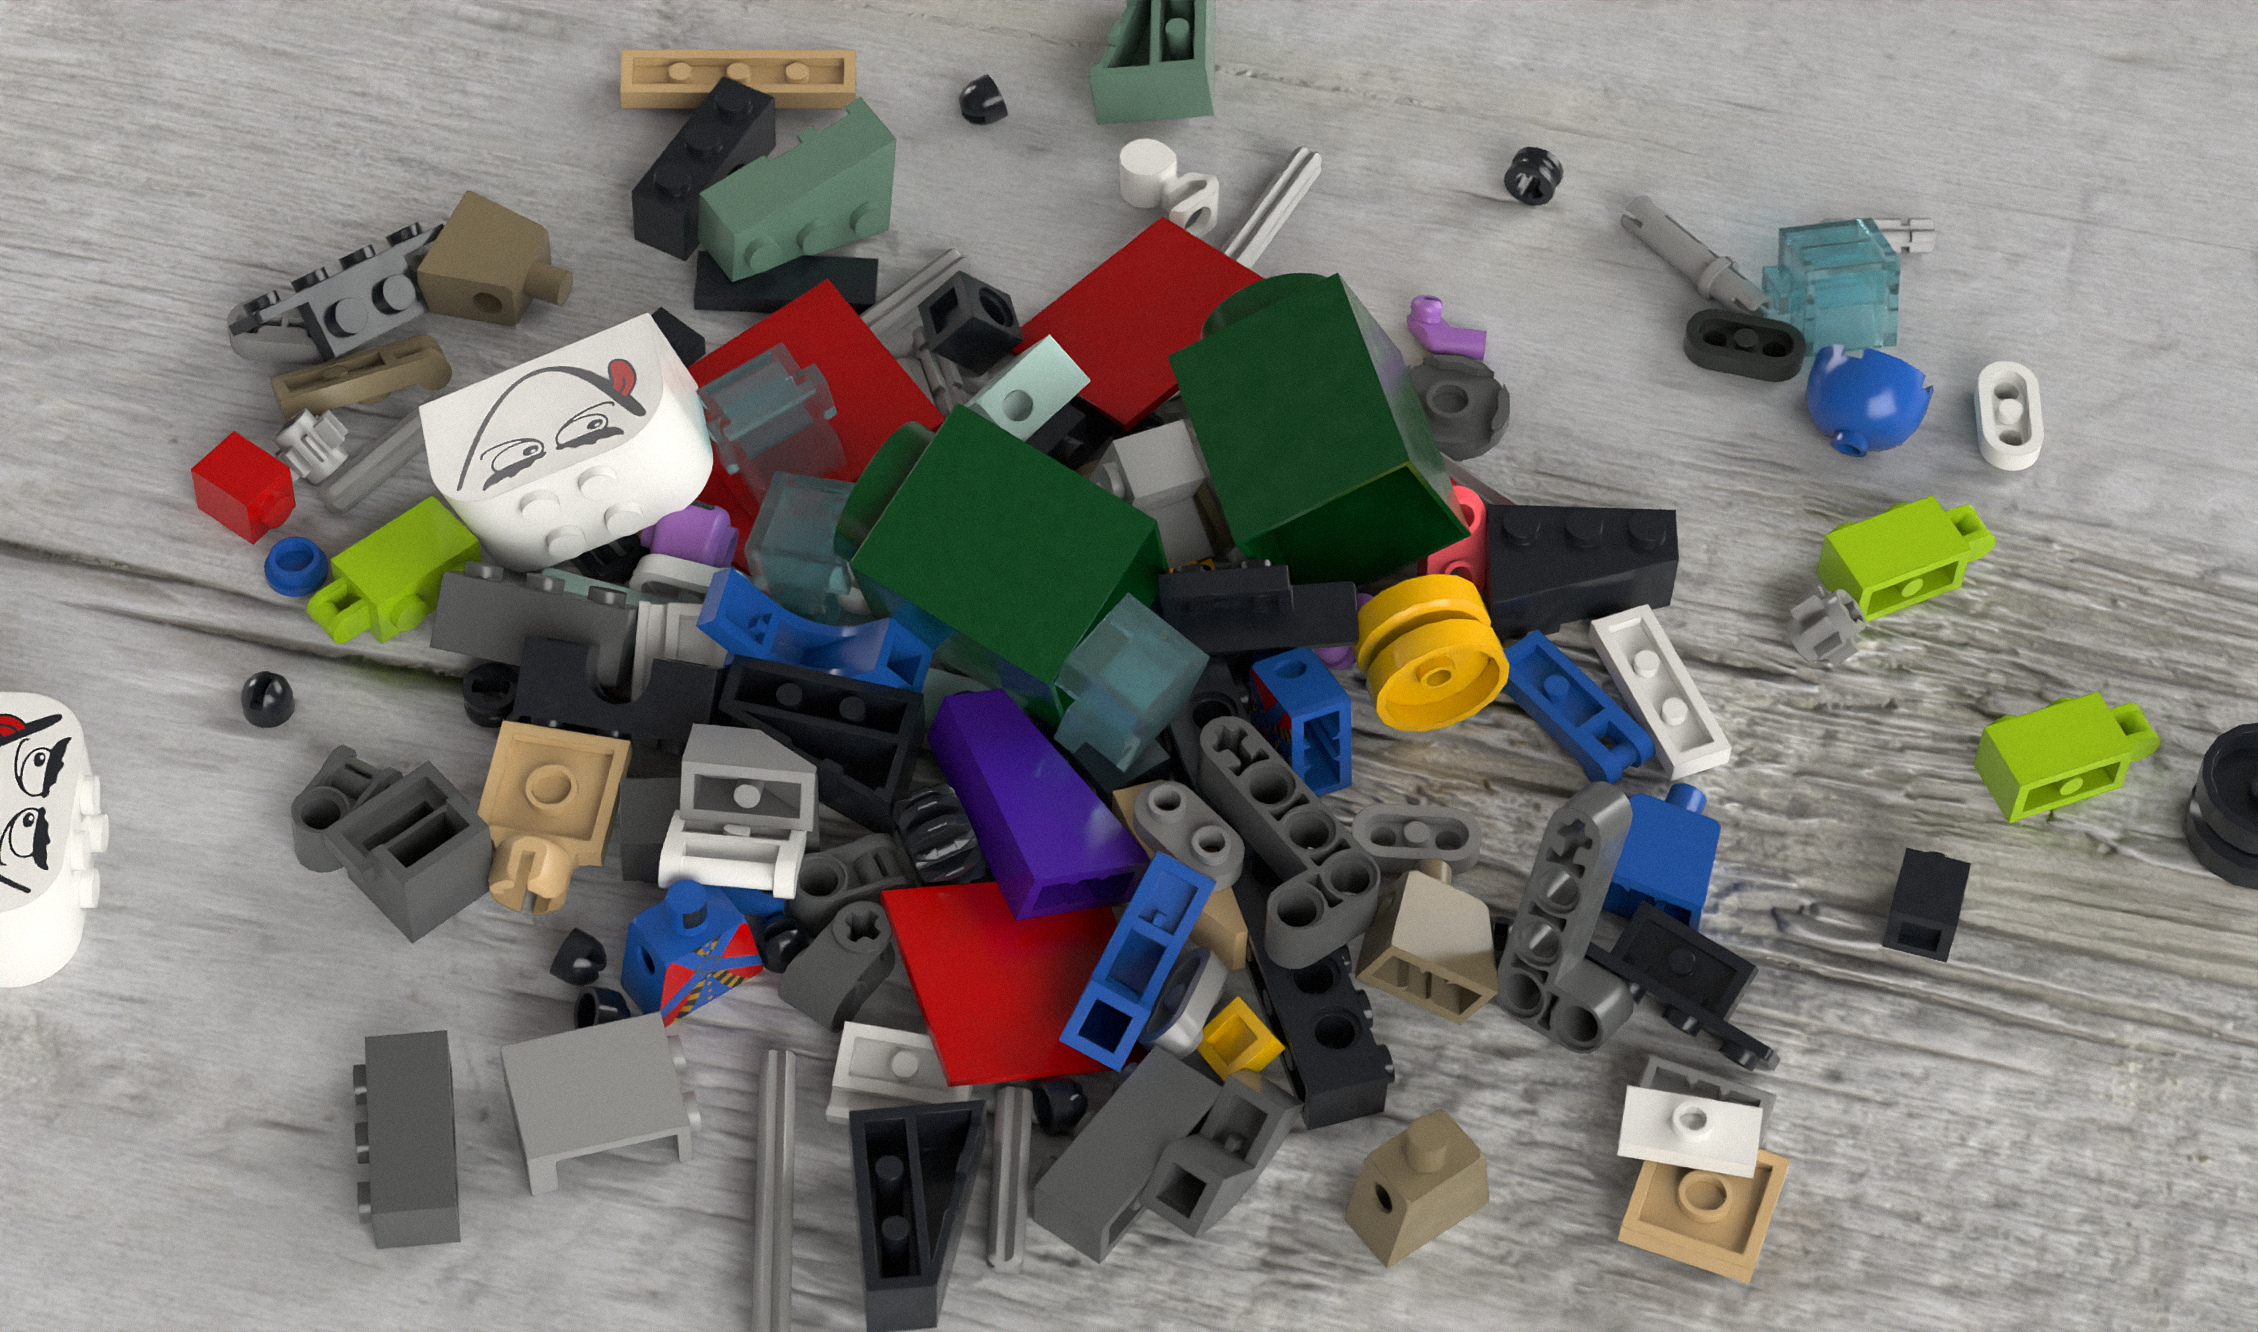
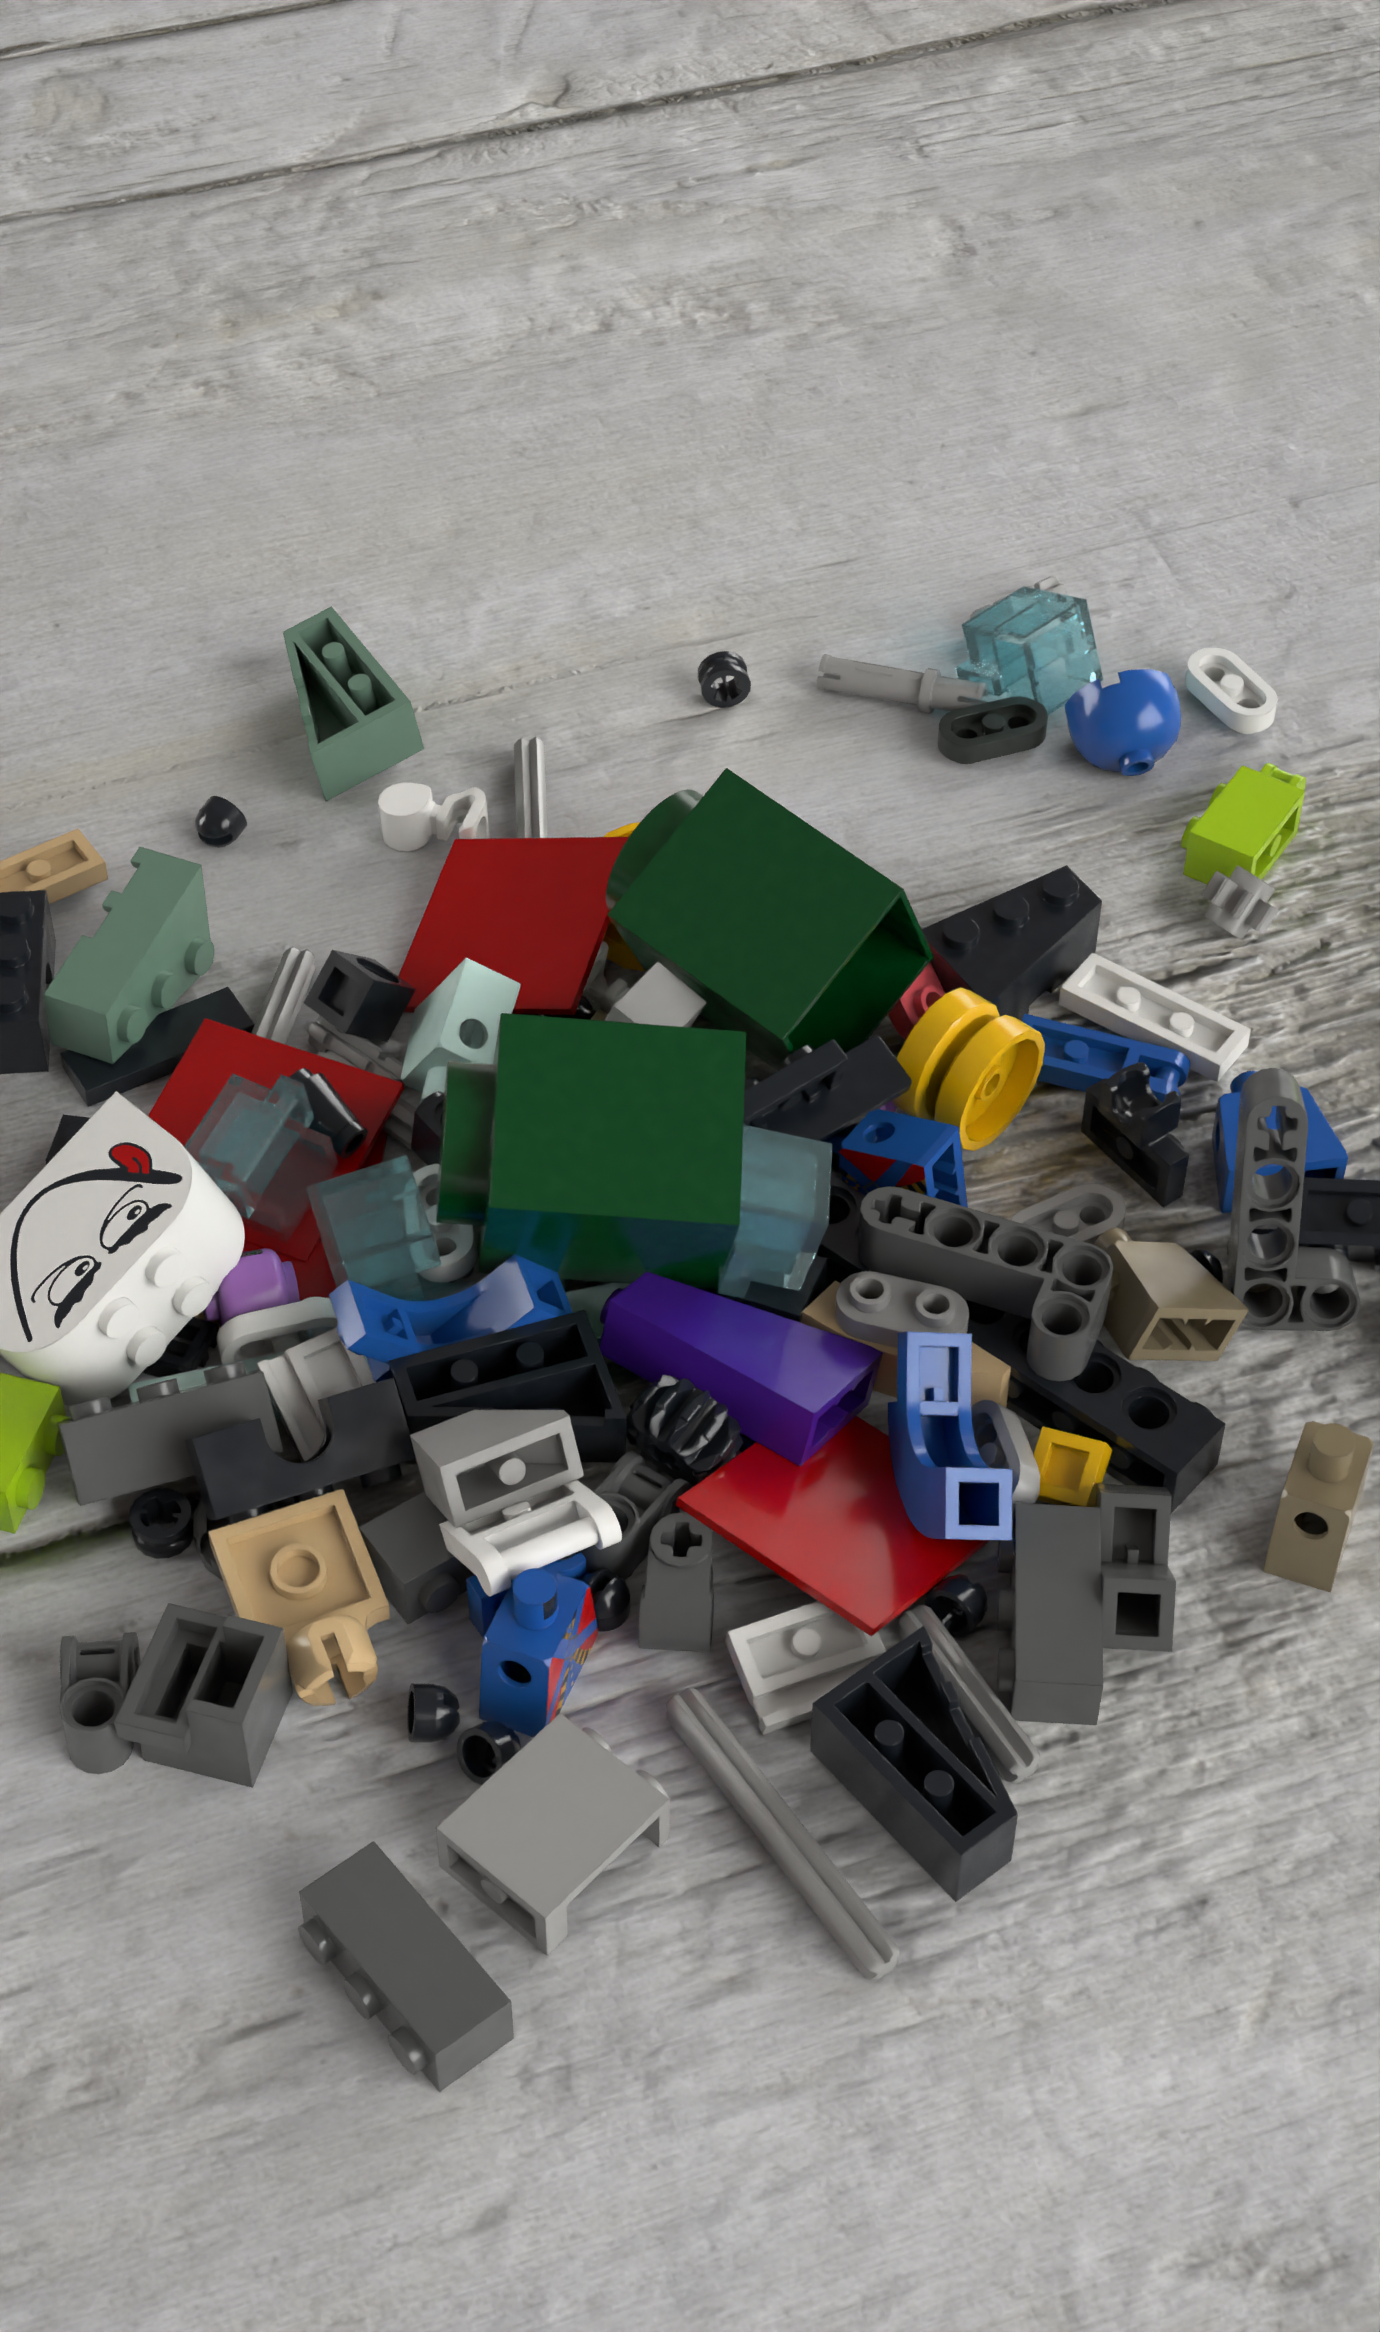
camera: 30 degrees left, 5 degrees down
(857, 412) = (331, 1114): none -> black cone
(1542, 777) = (1134, 1129): none -> black plate

